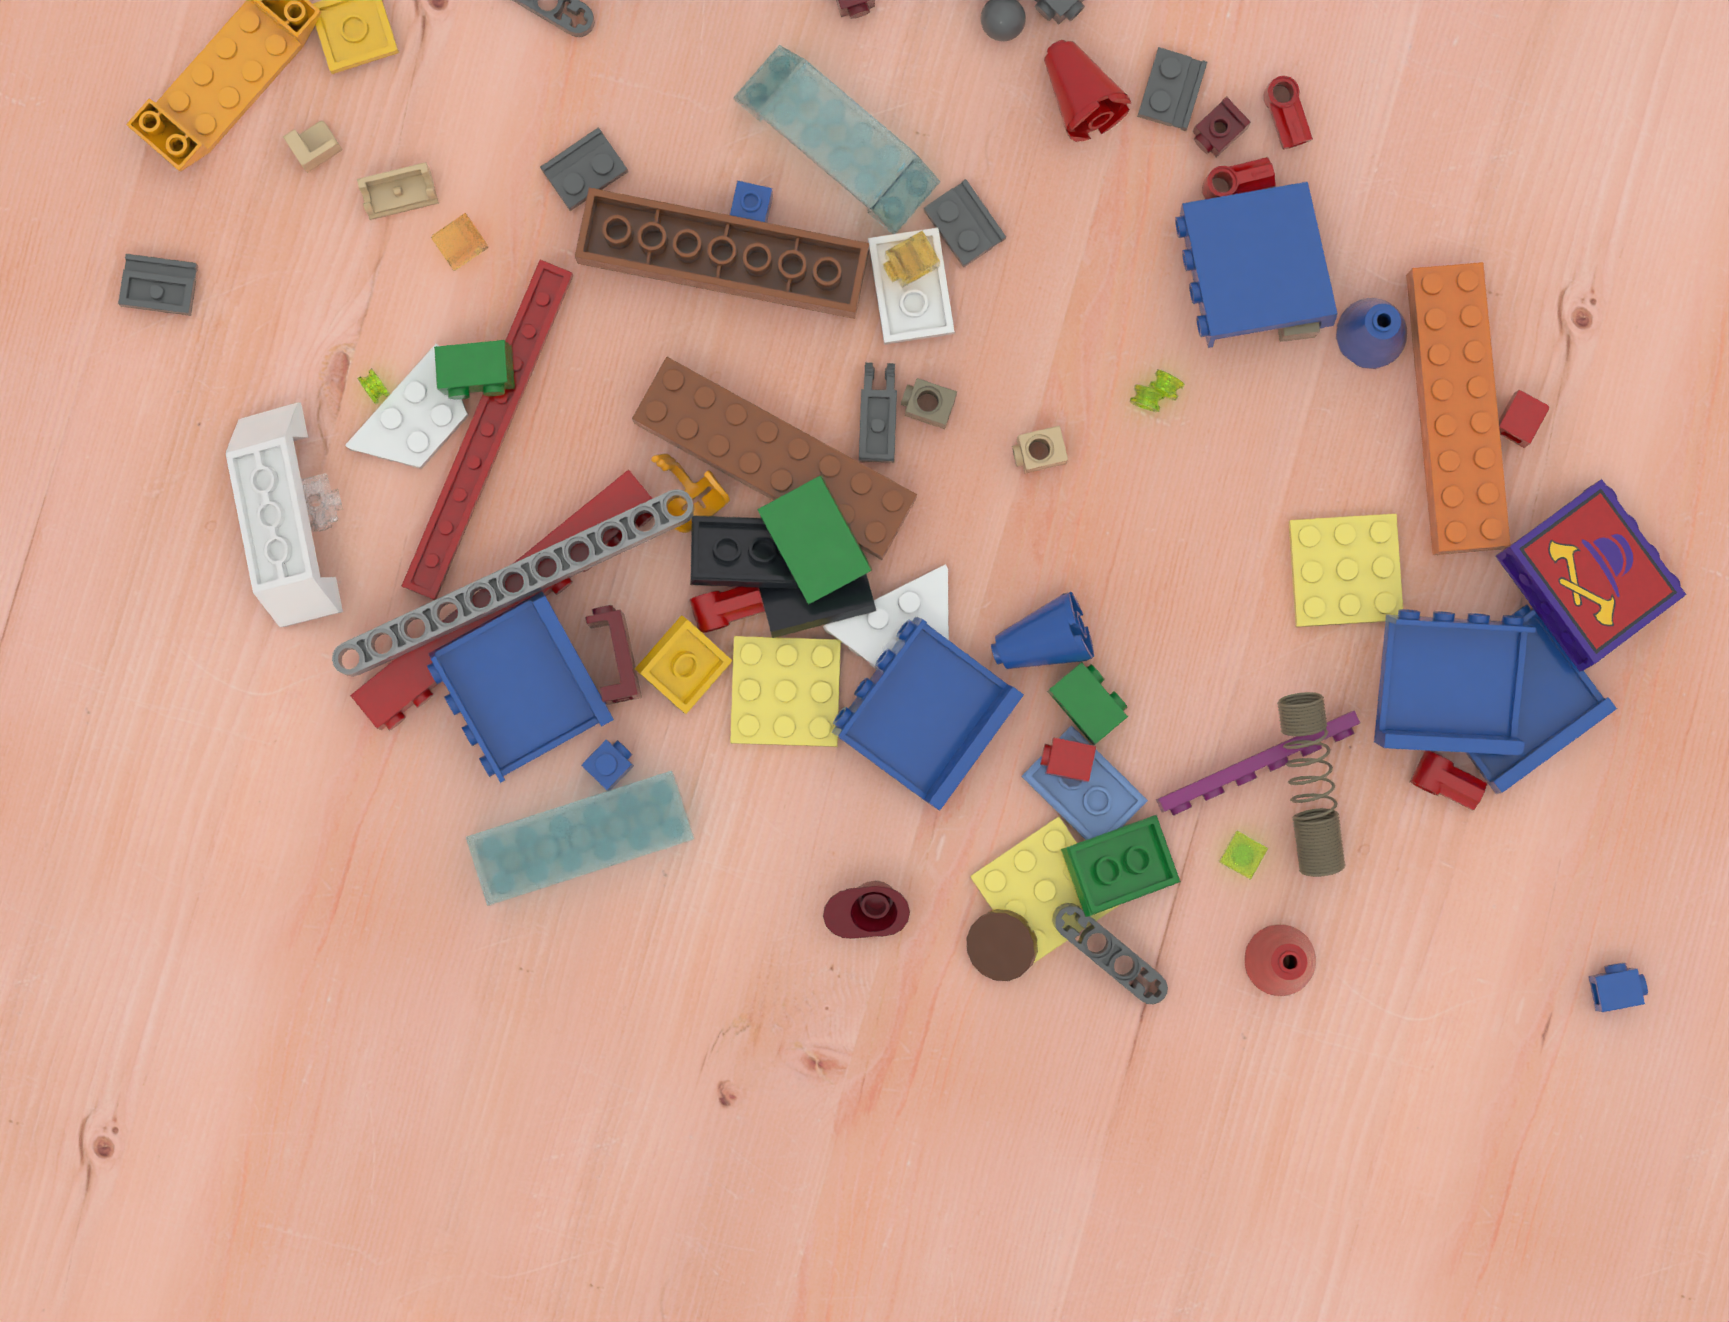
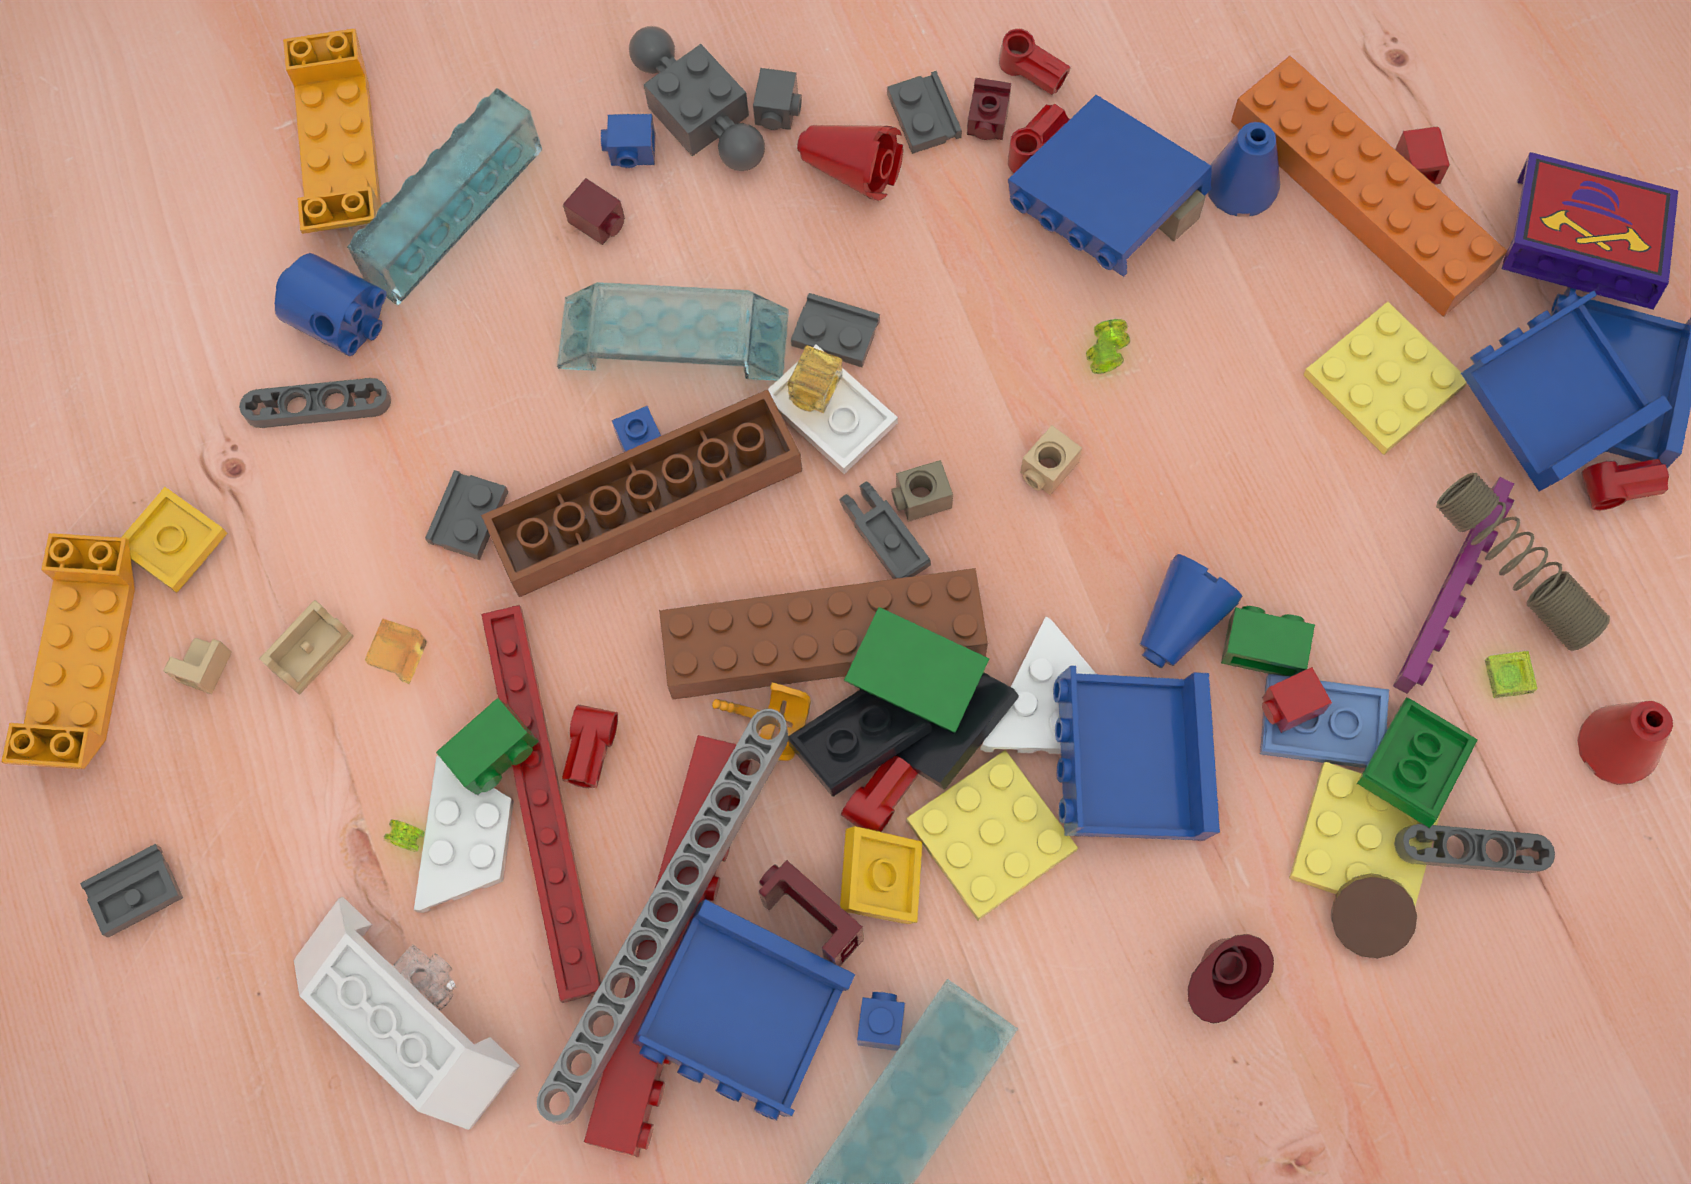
camera: 30 degrees left, 15 degrees down
(556, 410) = (591, 734): none -> red piece

